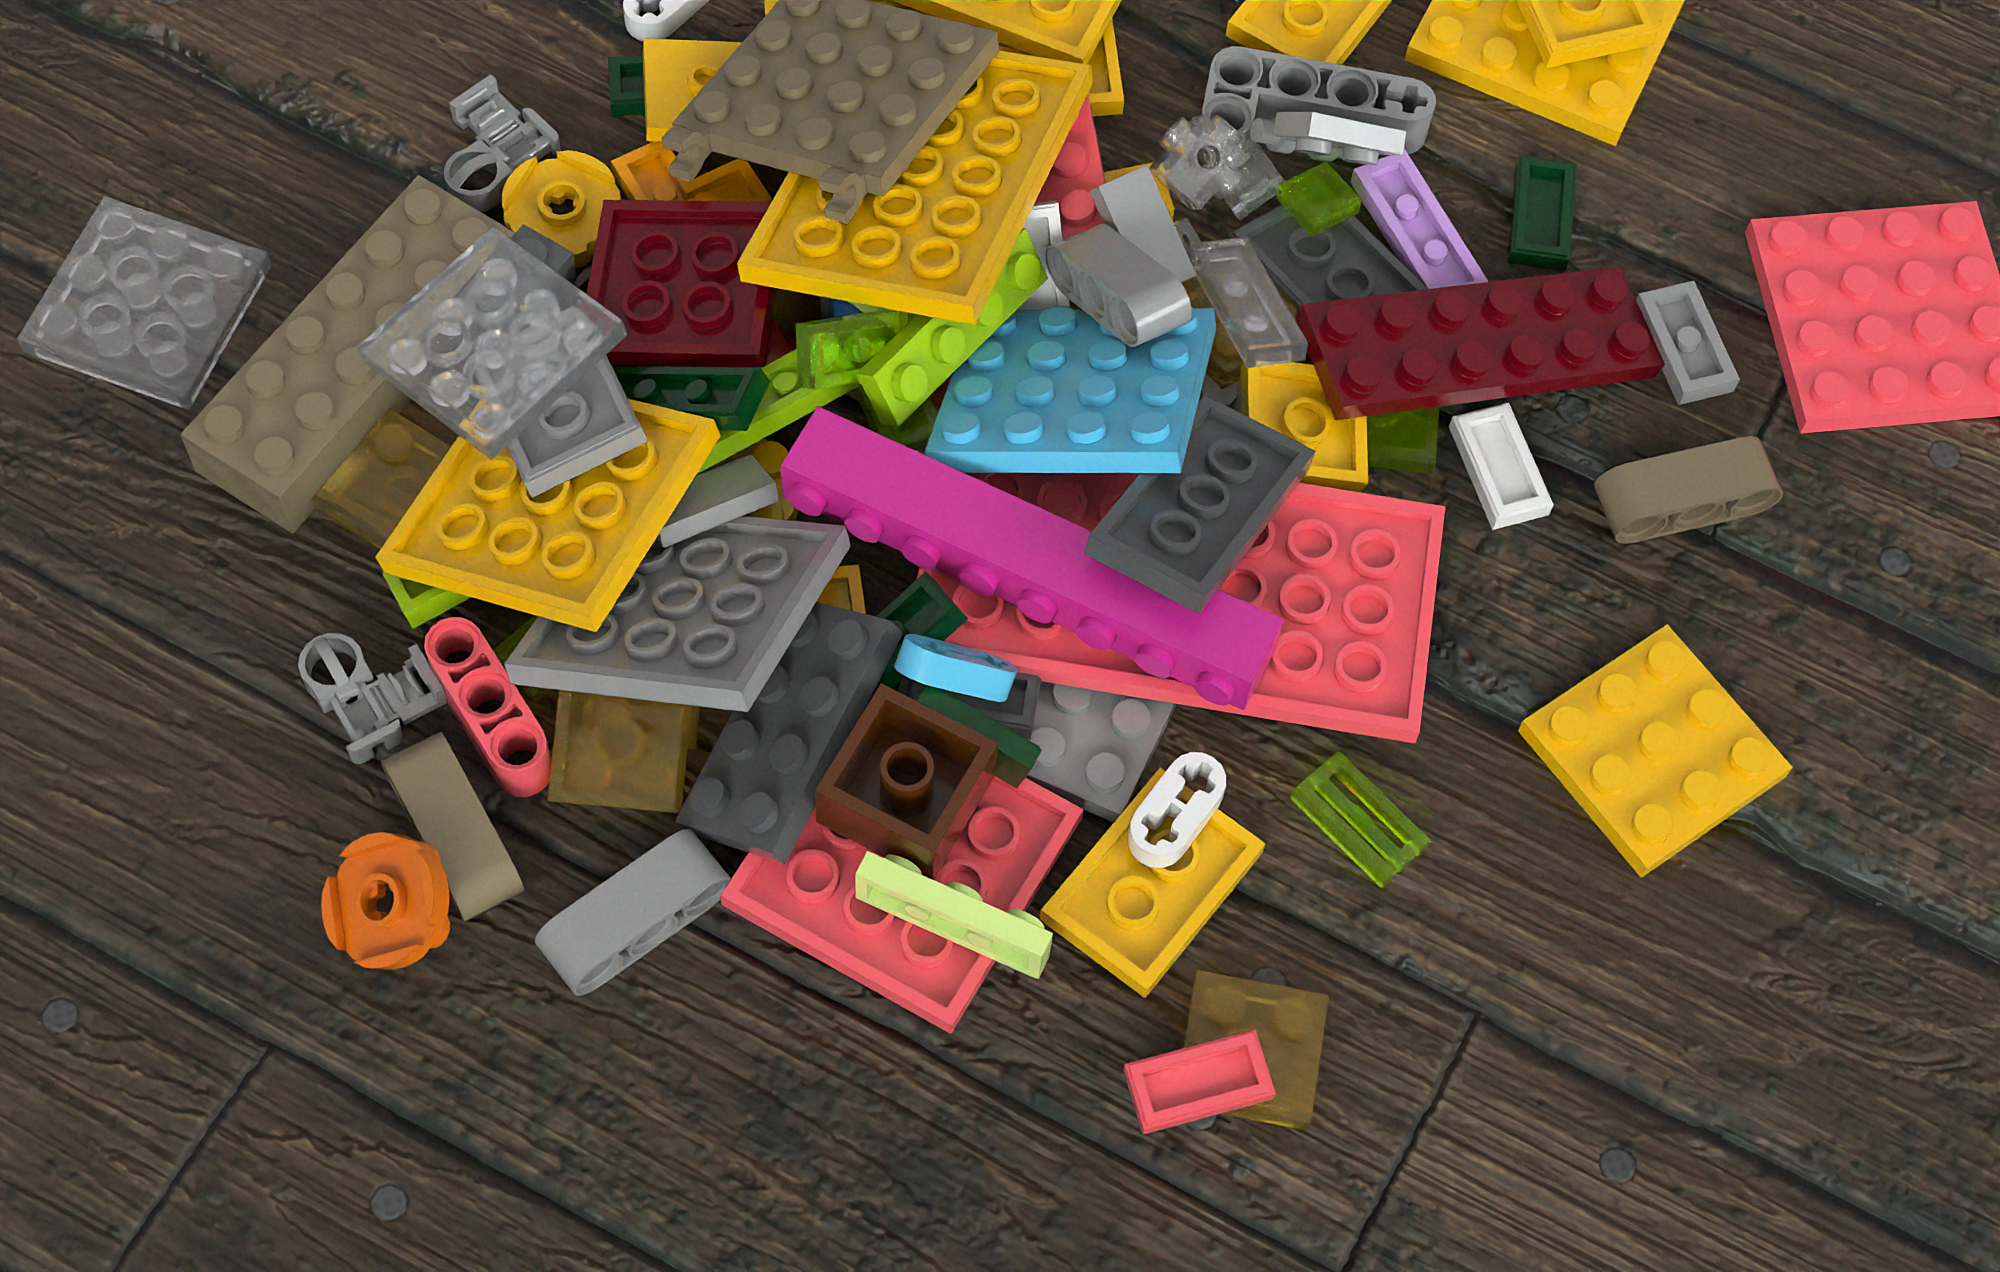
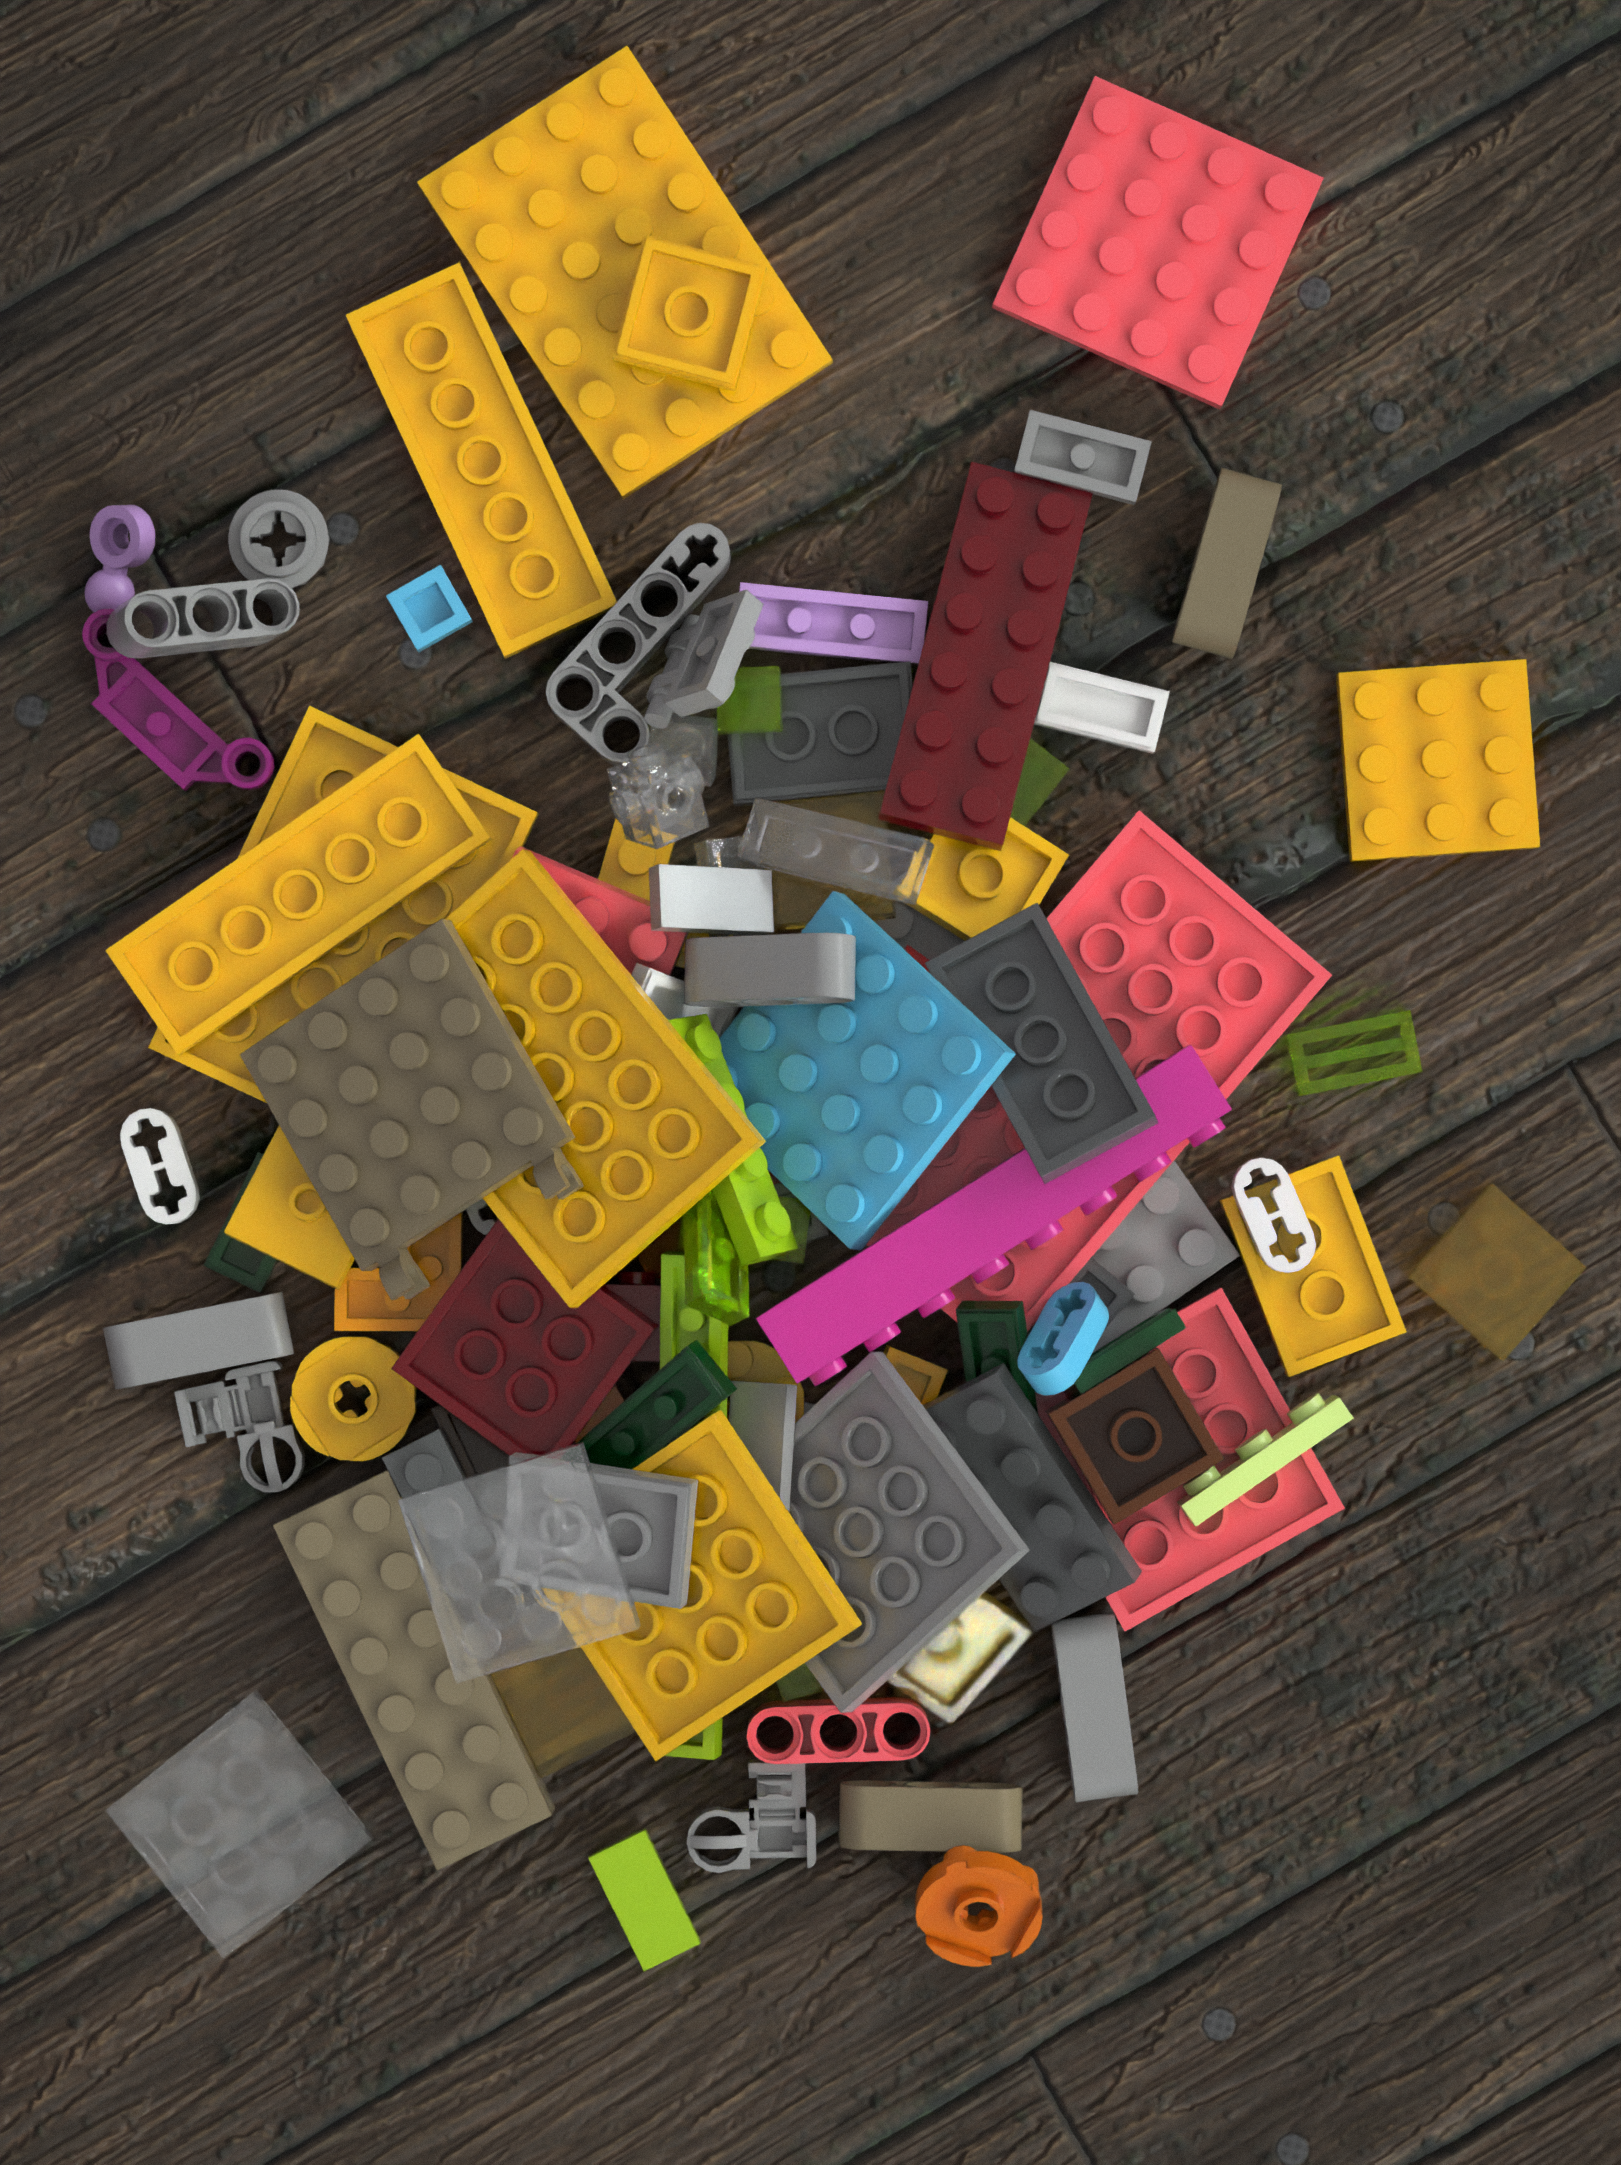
camera: 60 degrees left, 25 degrees up
(244, 638) = (644, 1899): none -> lime tile
(544, 77) = (198, 1340): none -> light grey beam
(1199, 1081) = (1506, 1338): coral tile -> none
(1542, 213) = (868, 488): dark green tile -> none

